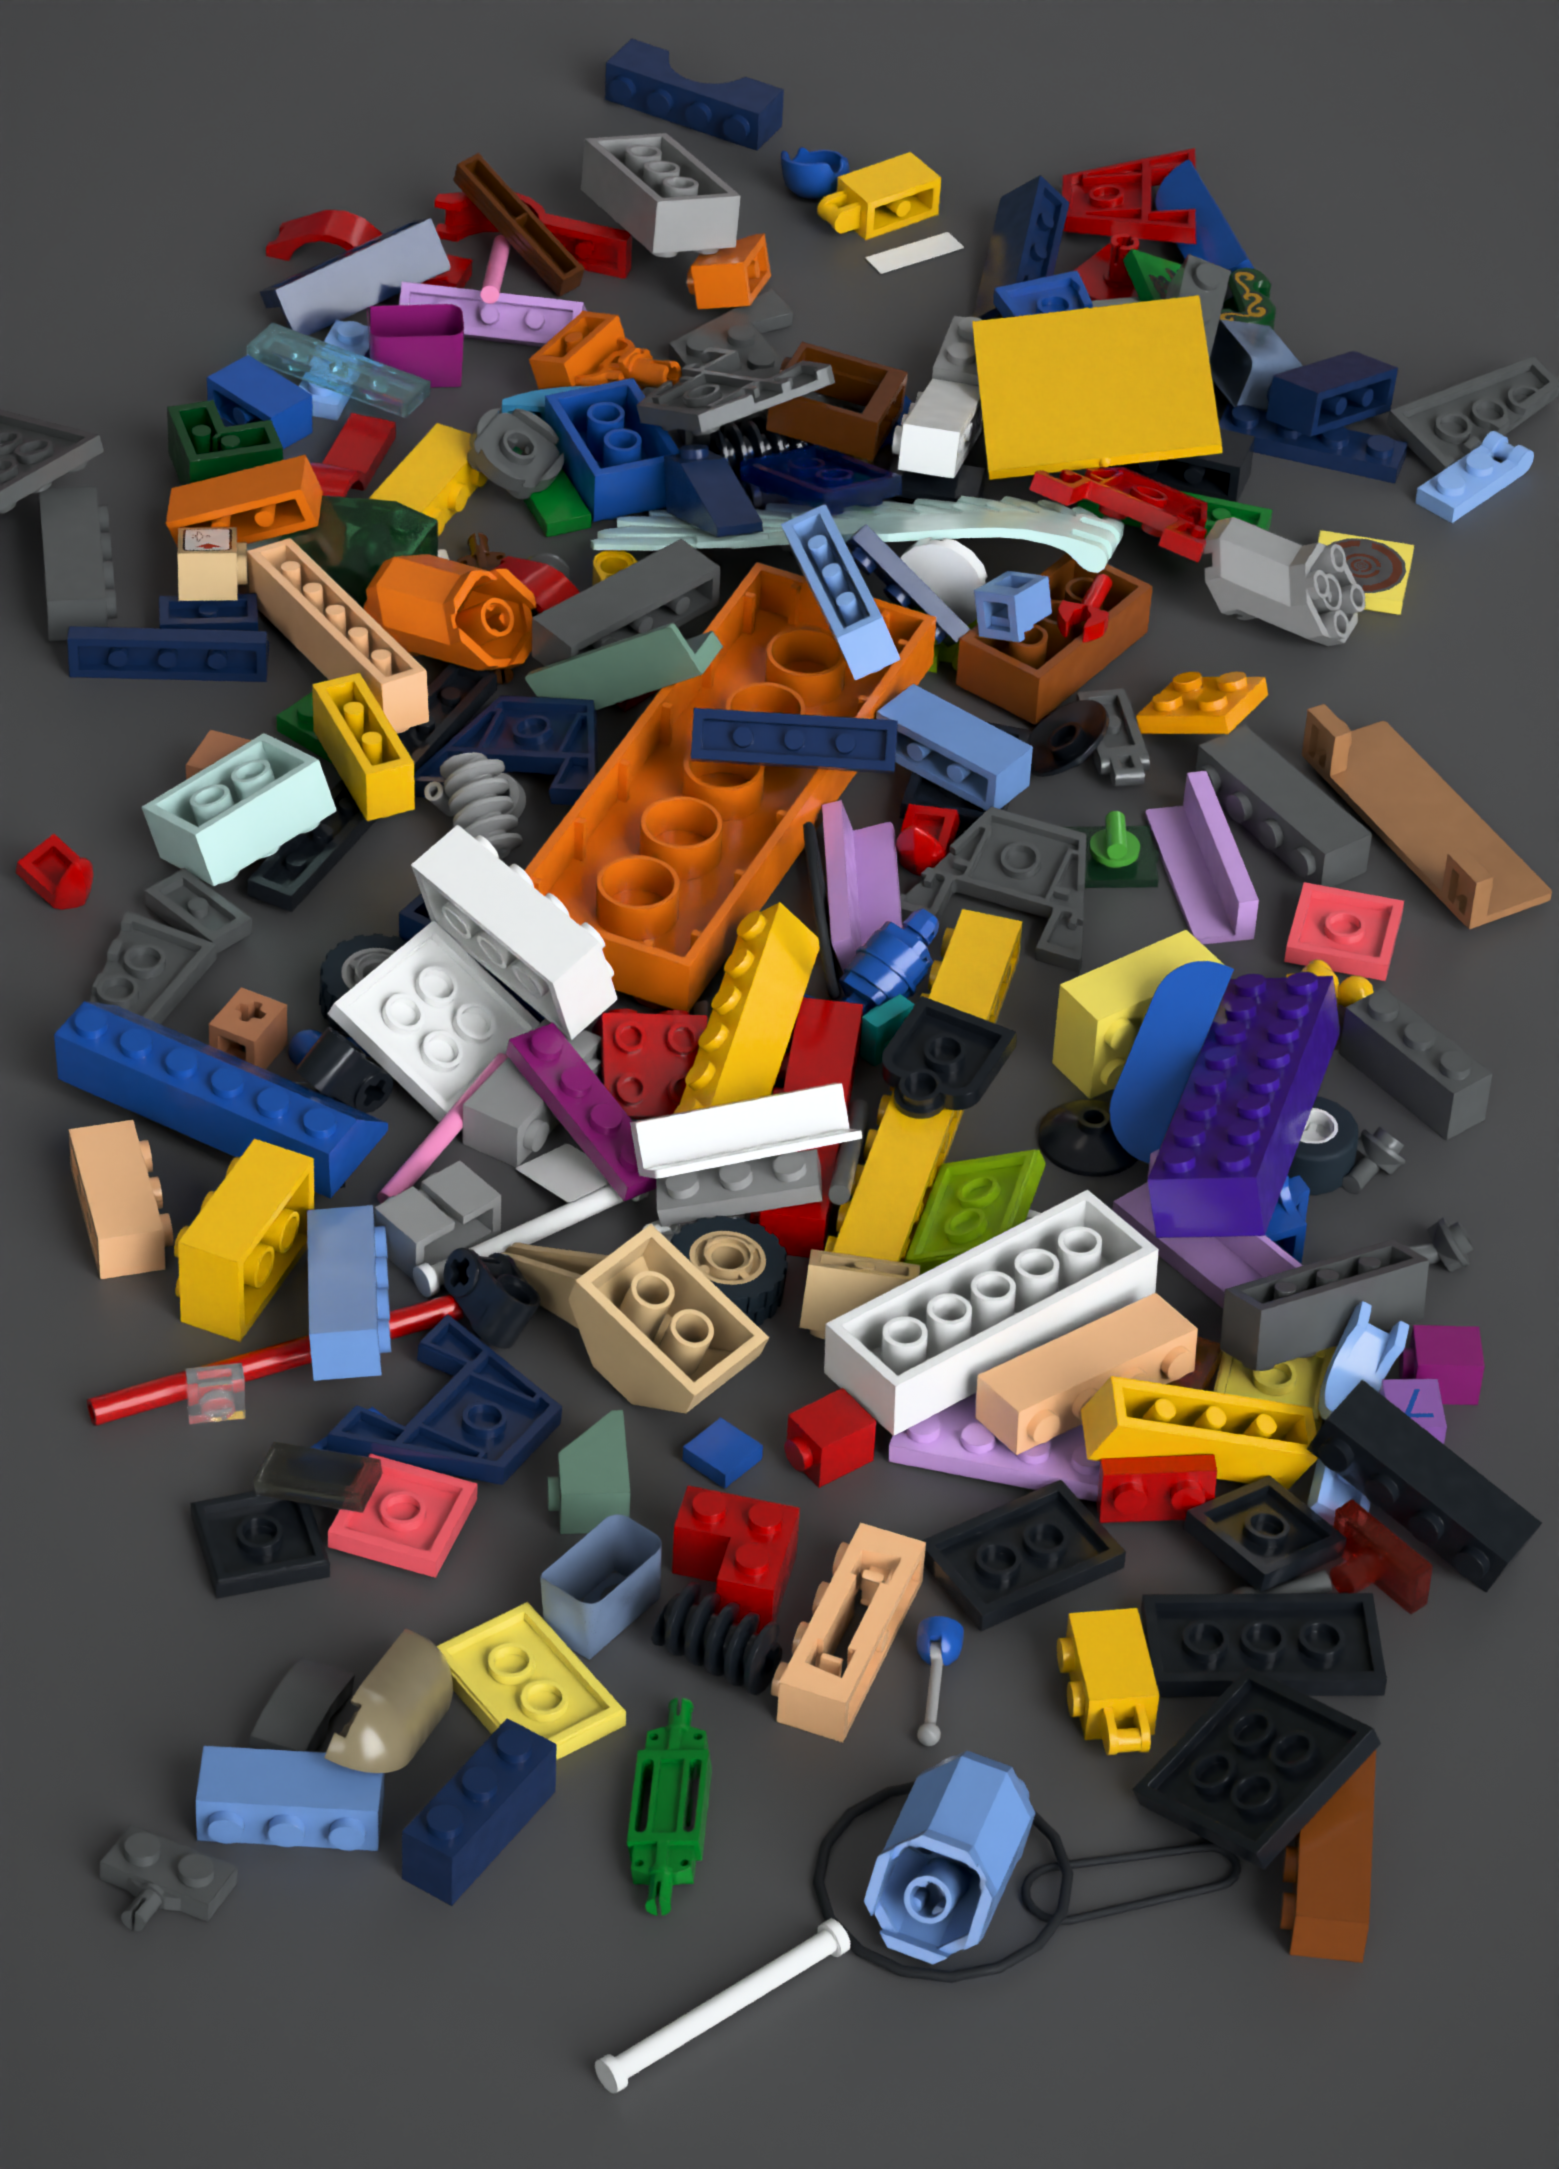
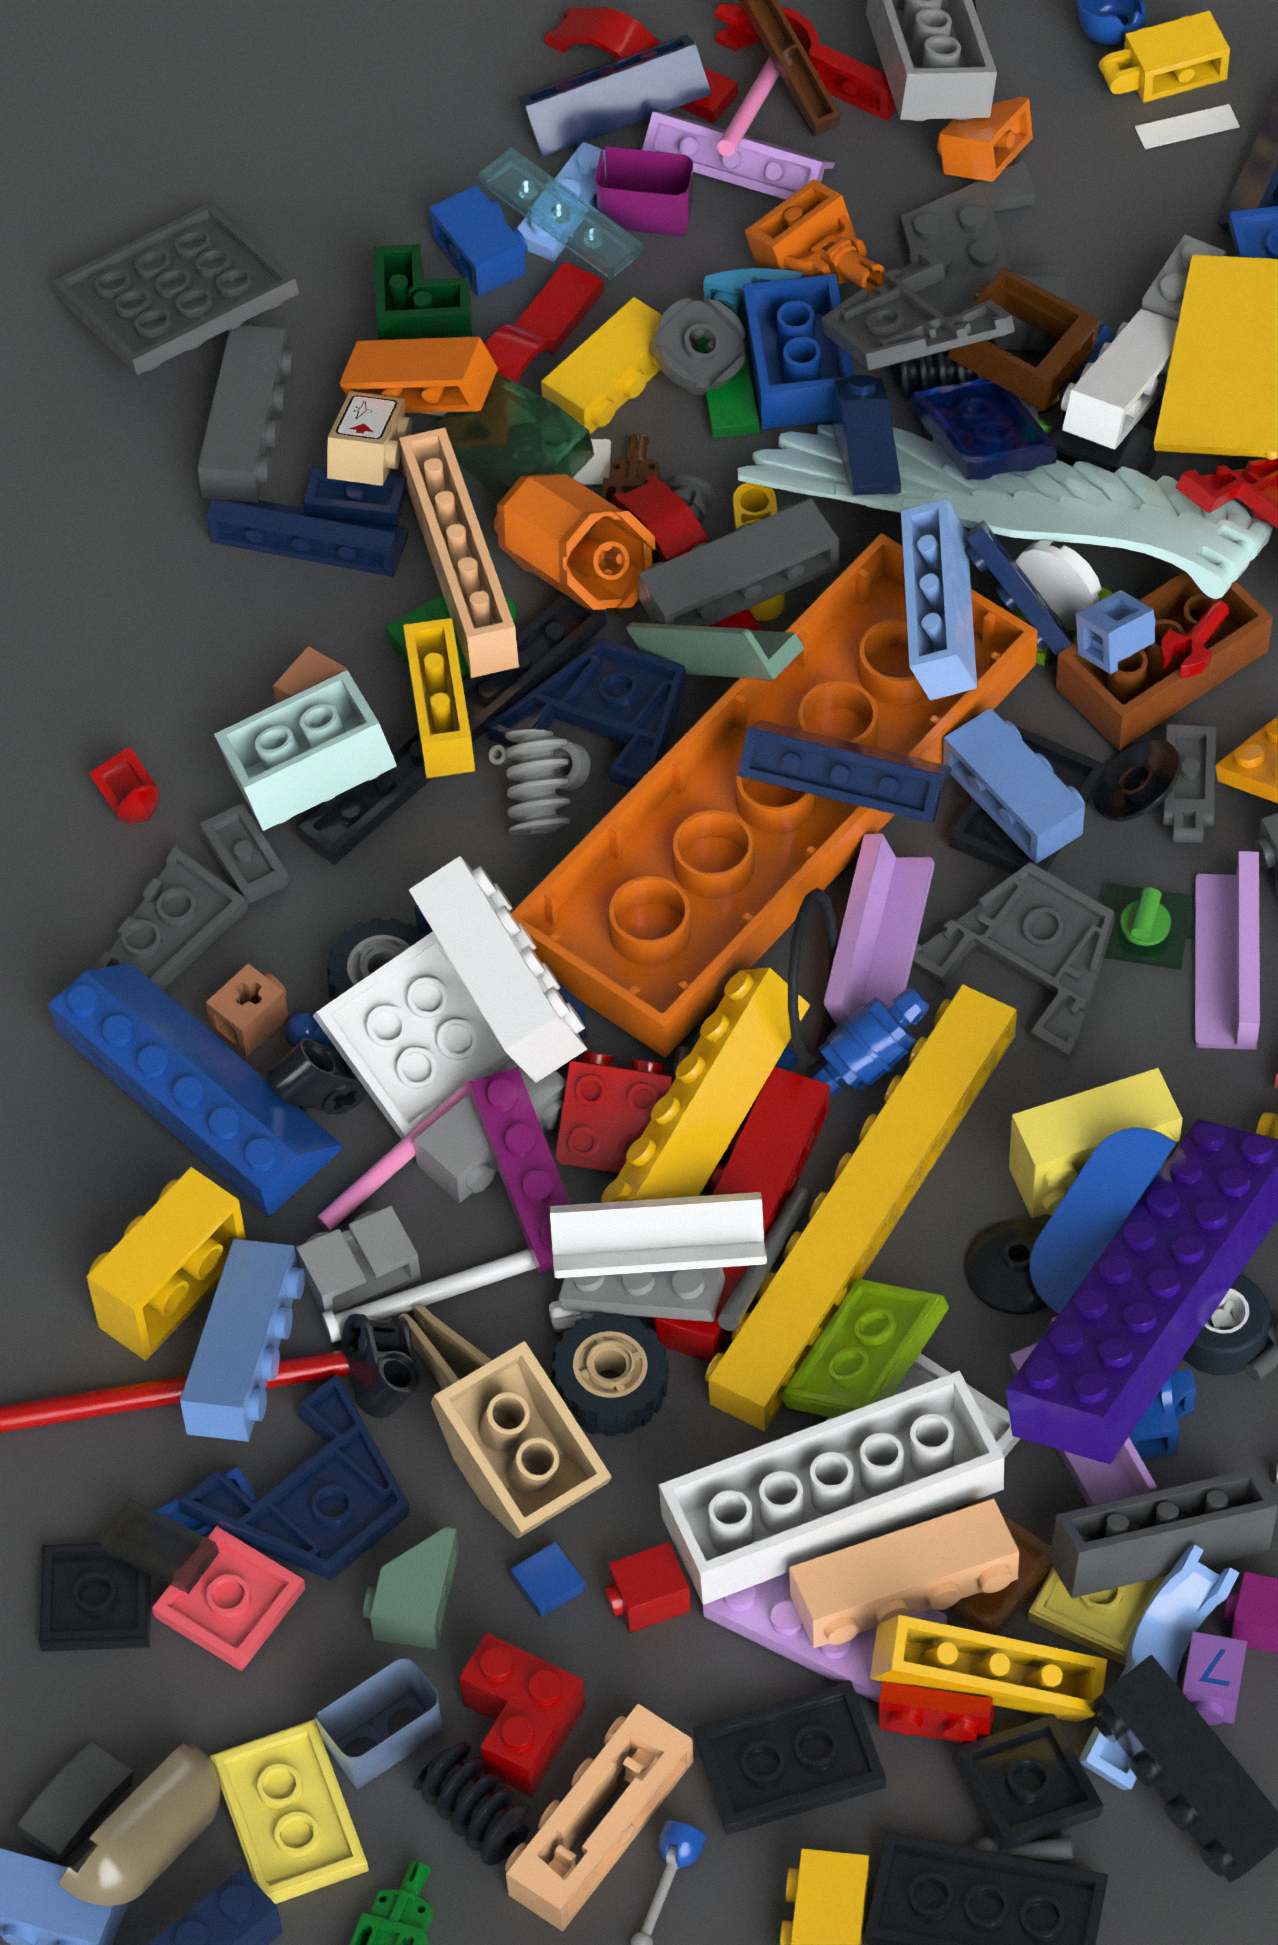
camera: 20 degrees right, 15 degrees up
(119, 1199) = (74, 1183): light nougat brick -> none
(215, 1393) = (97, 1427): clear plate -> none
(564, 1173) = (493, 1225): white sticker -> none
(844, 1282) = (716, 1424): tan brick -> none
(881, 1025) = (850, 1108): teal plate -> none
(926, 836) = (963, 879): red plate -> none
(943, 1059) = (880, 1173): black plate -> none
(1379, 1558) = (1124, 1834): clear red tile -> none

